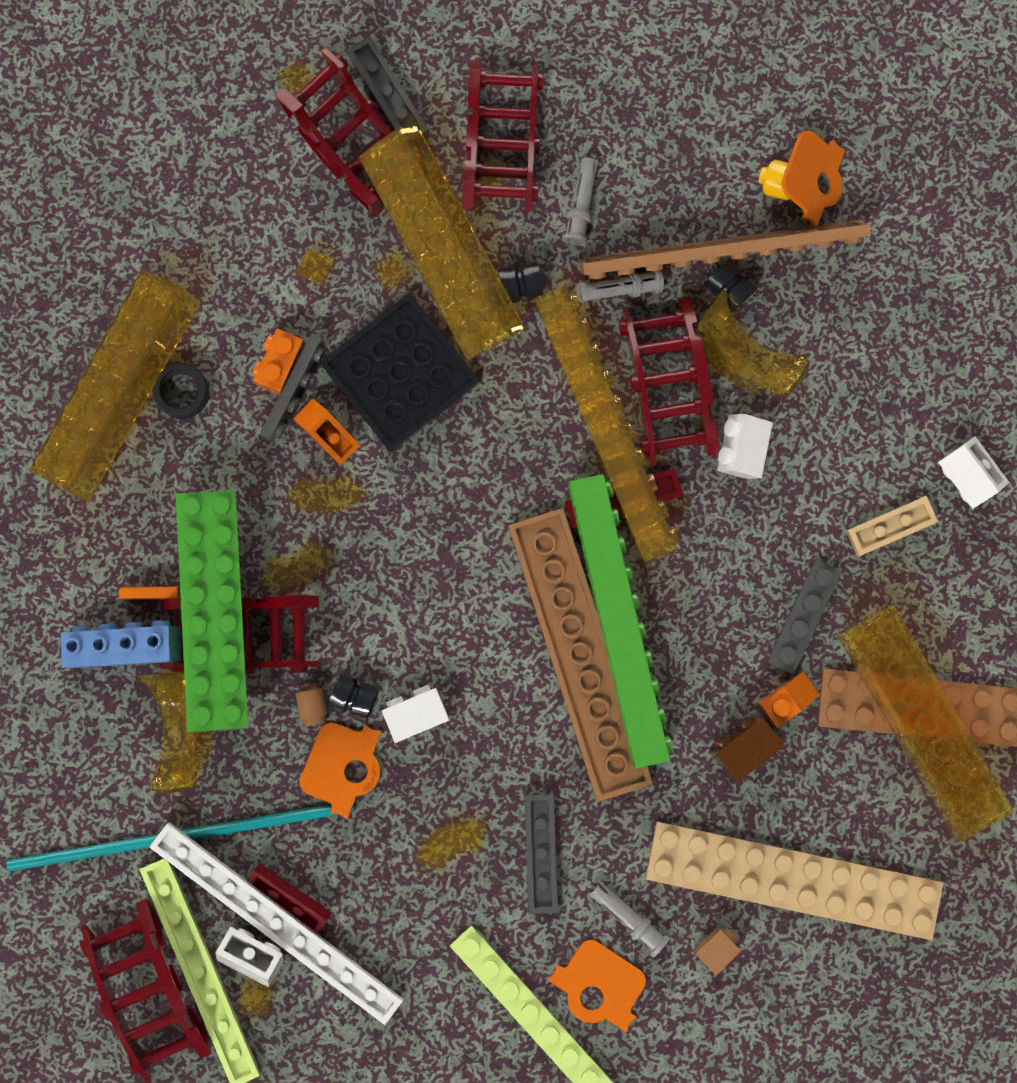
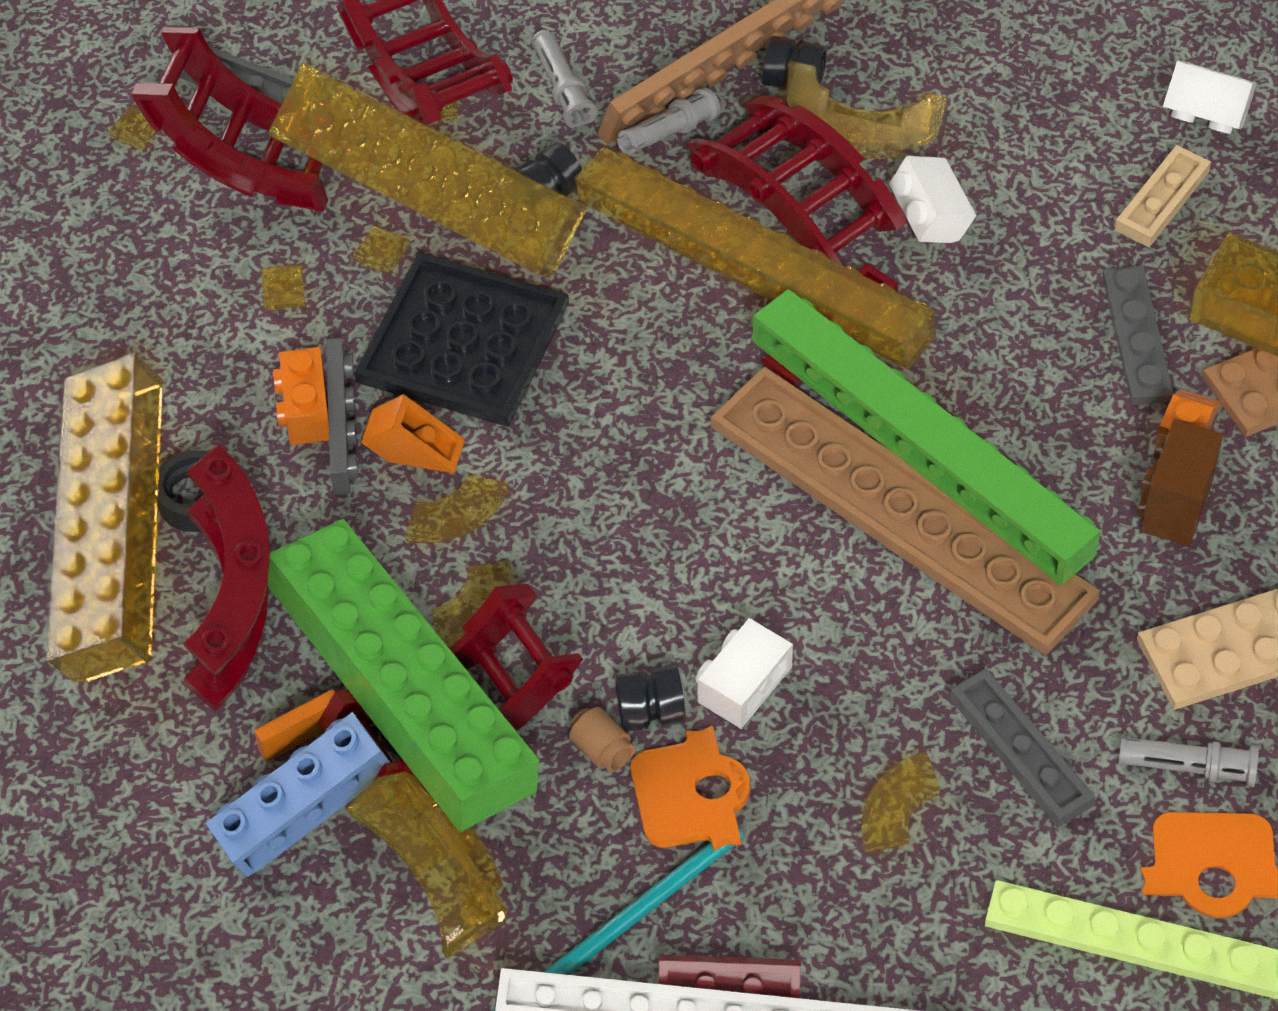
camera: 25 degrees left, 30 degrees down
(169, 477) = (238, 535): none -> dark red fence

